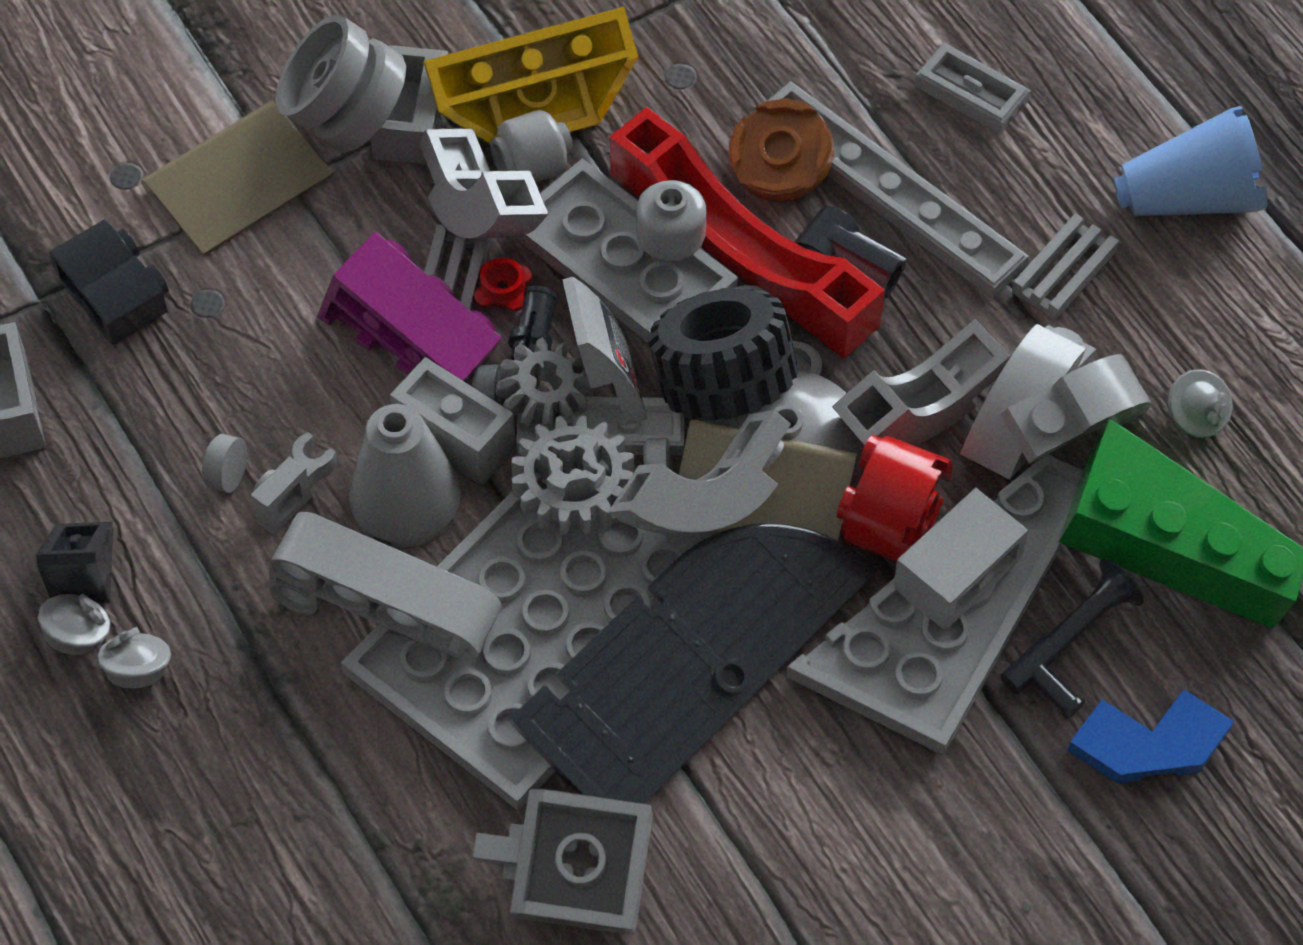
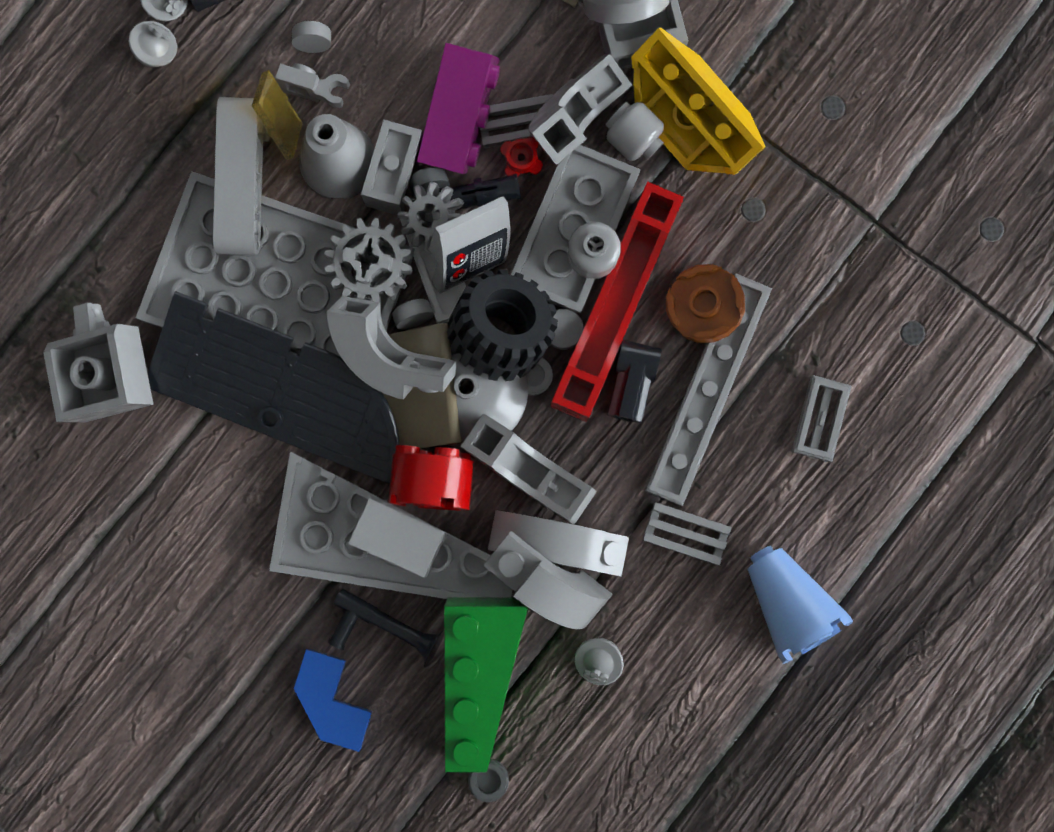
camera: 65 degrees right, 25 degrees up
(342, 512) = (277, 114): none -> clear yellow piece

